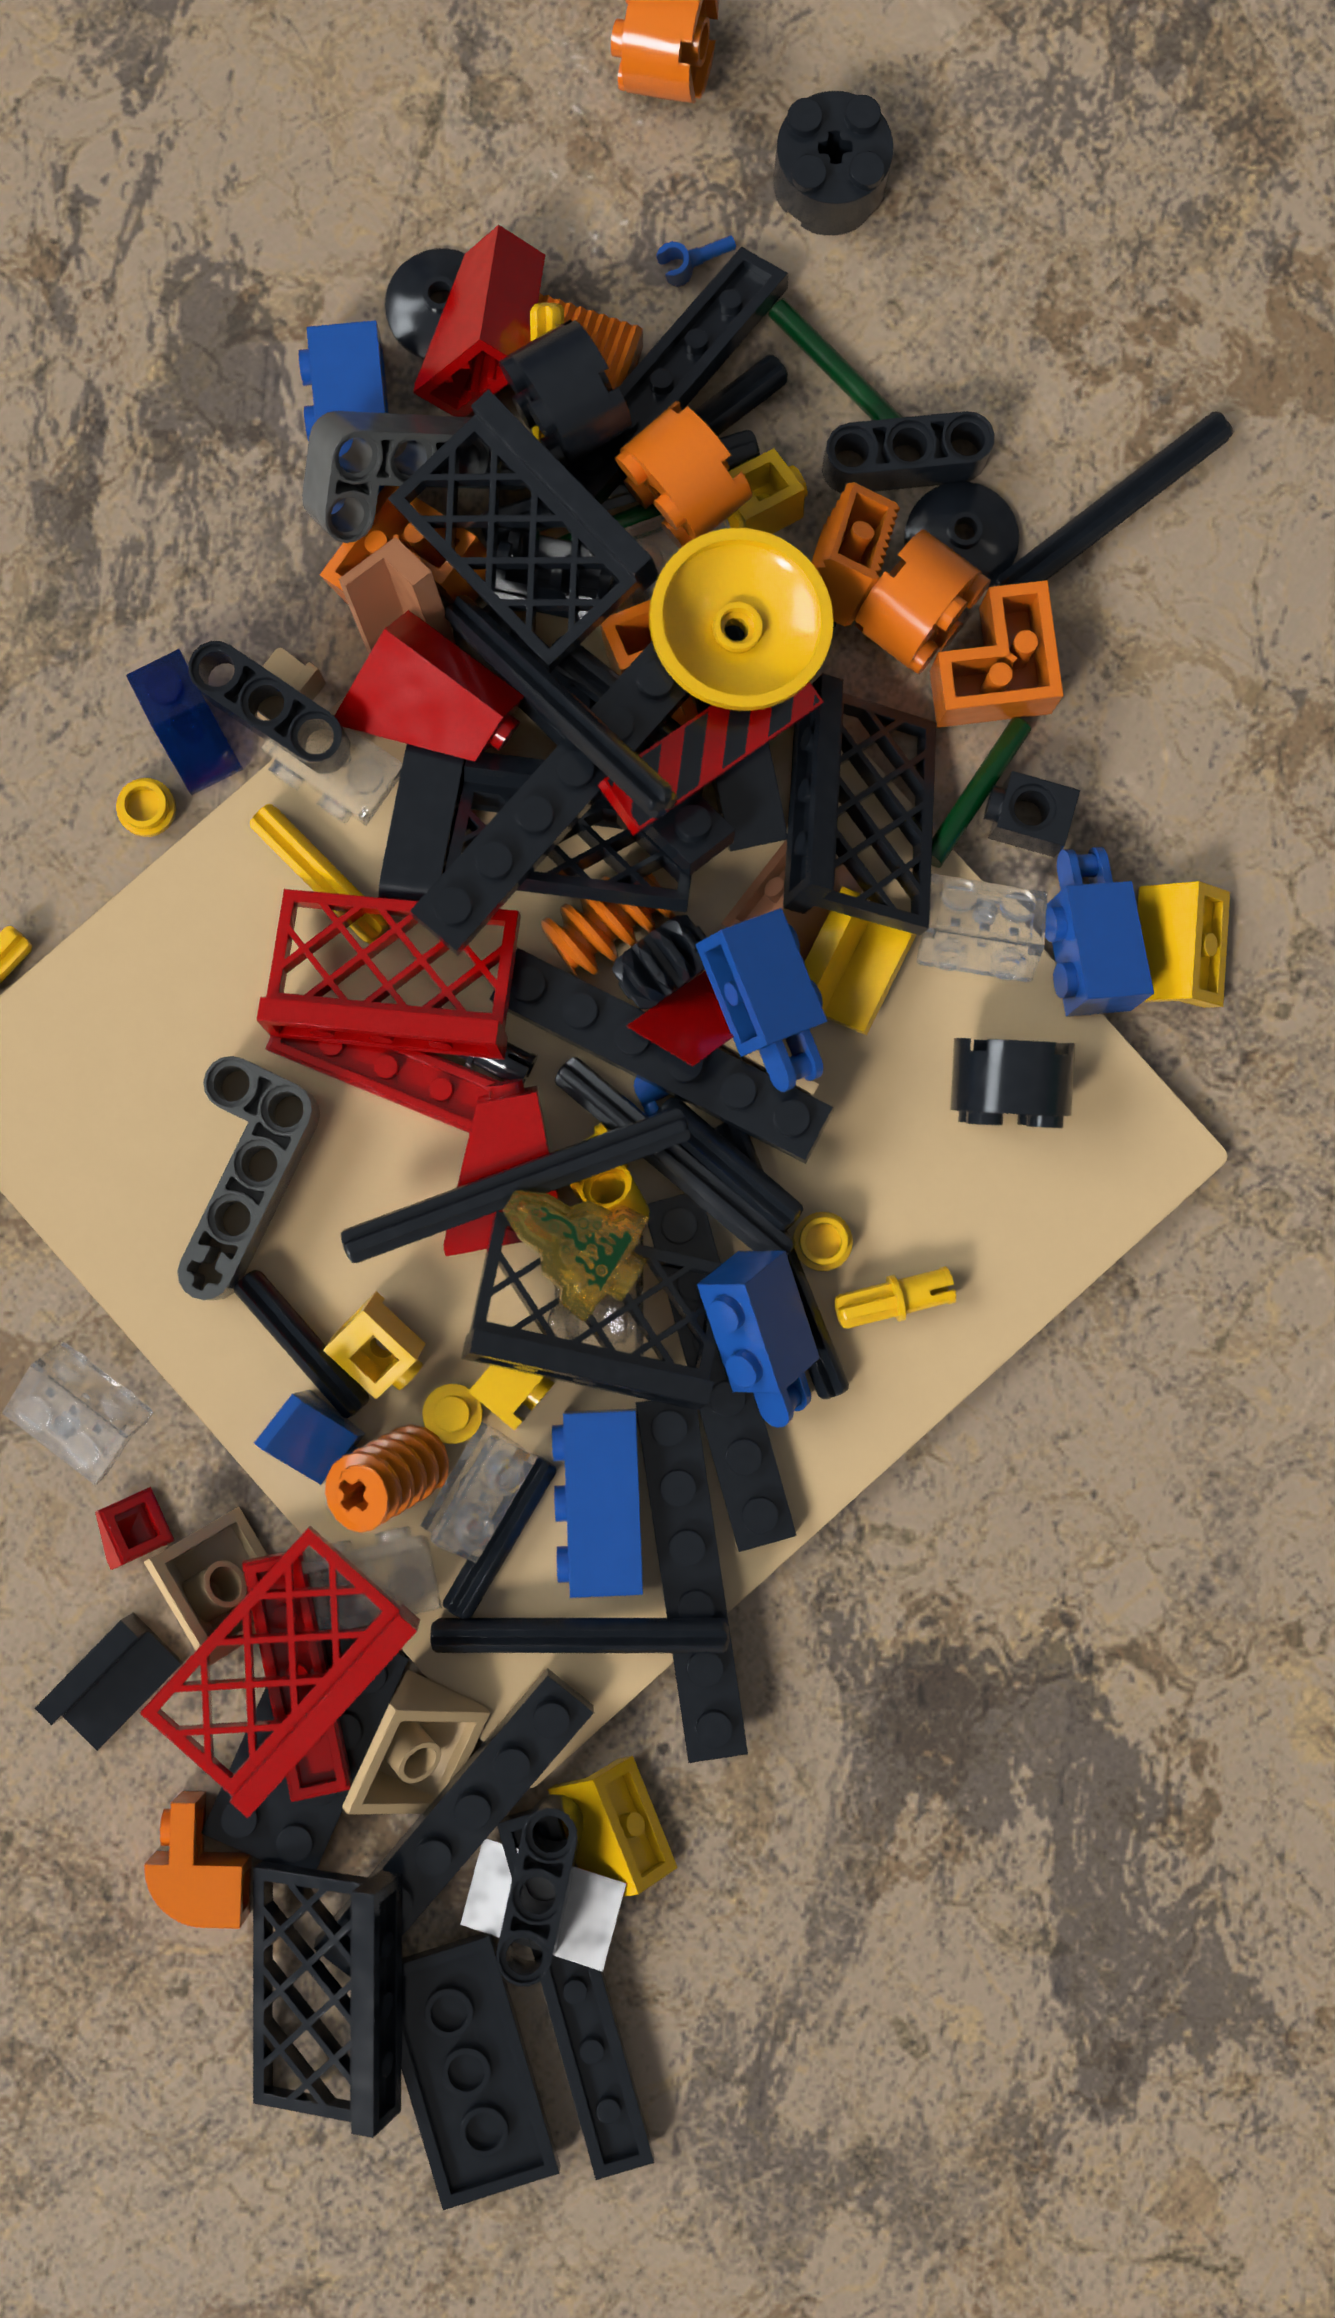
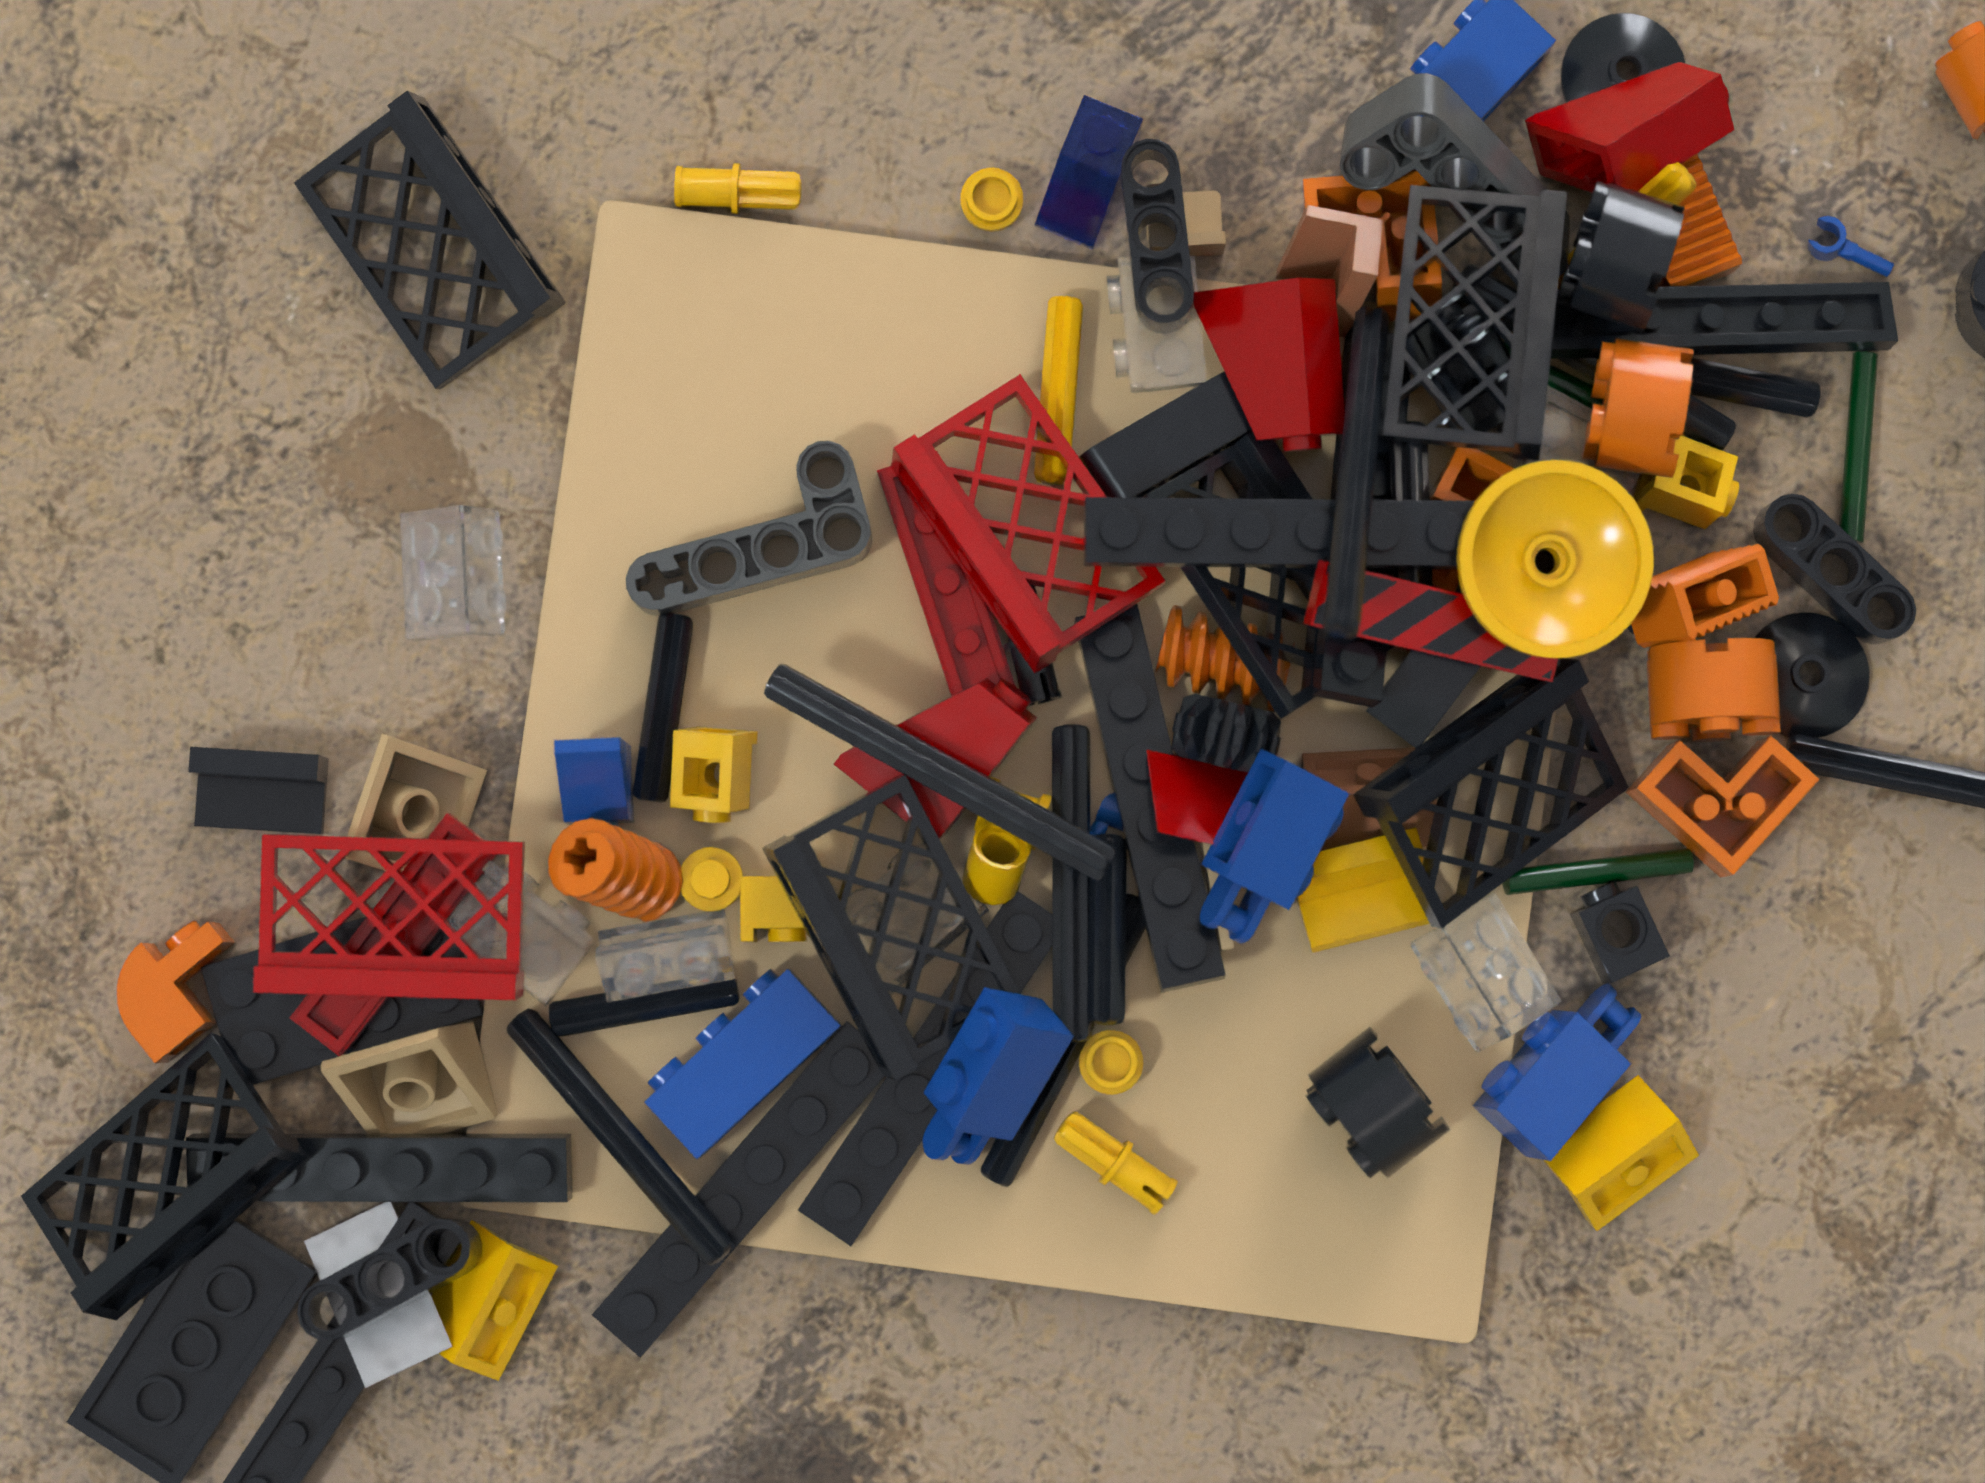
camera: 60 degrees right, 0 degrees up
(132, 1528) = (396, 699): red slope -> none
(580, 1246) = (934, 868): clear yellow rock -> none

